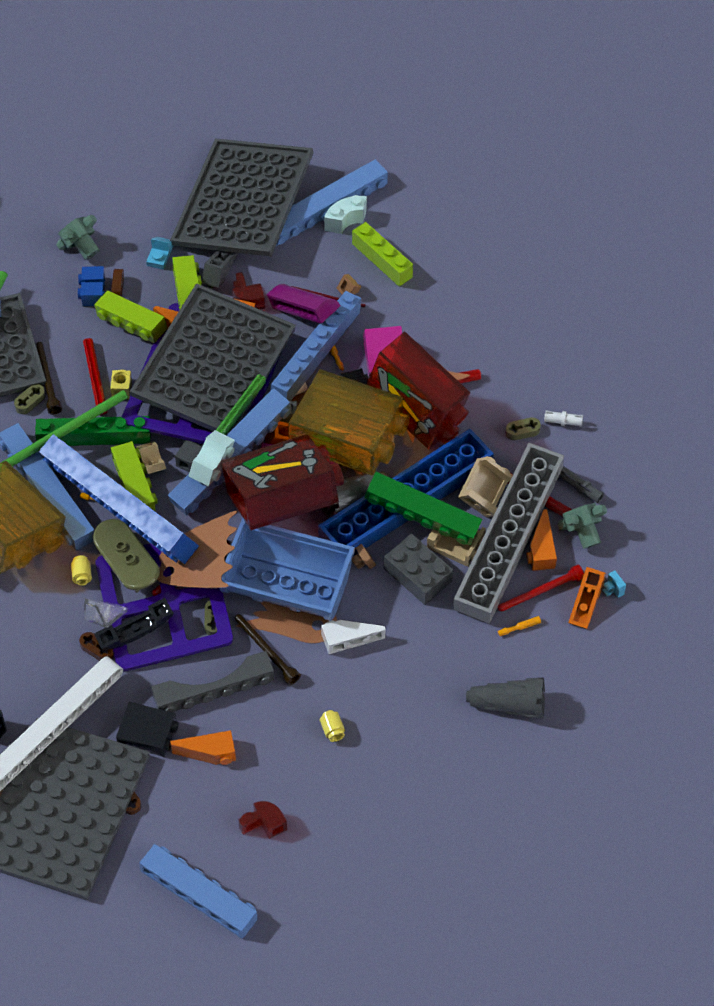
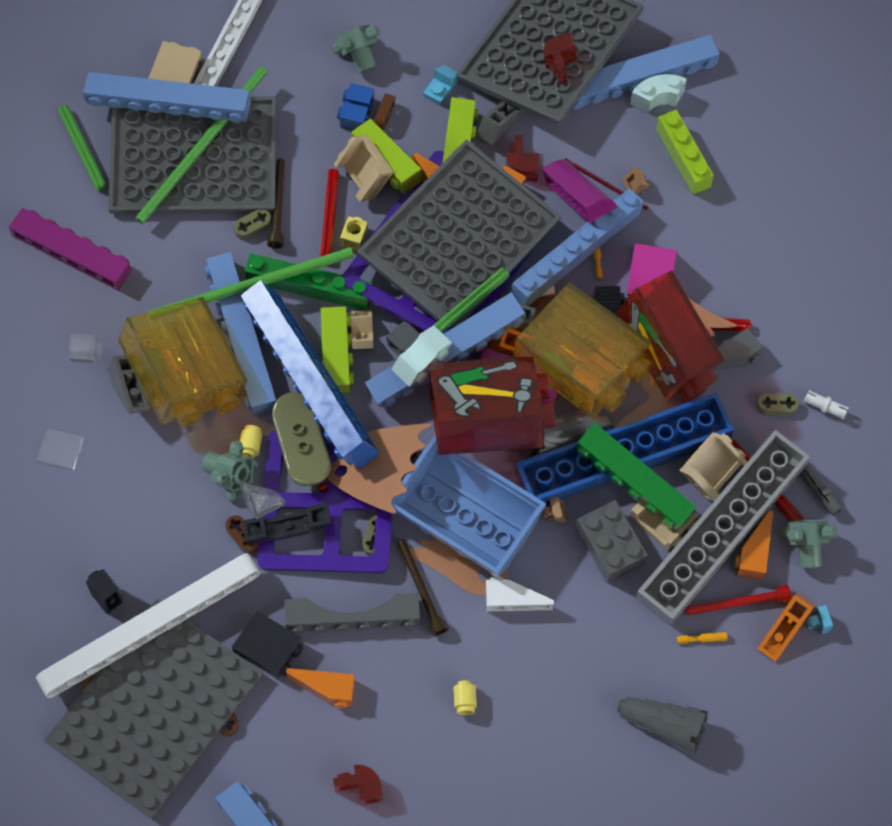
camera: 15 degrees right, 10 degrees up
(70, 594) = (230, 469): none -> sand green piece
(114, 328) = (365, 166): none -> tan panel
(253, 200) = (558, 52): none -> clear red brick
(482, 393) = (740, 350): none -> dark grey slope

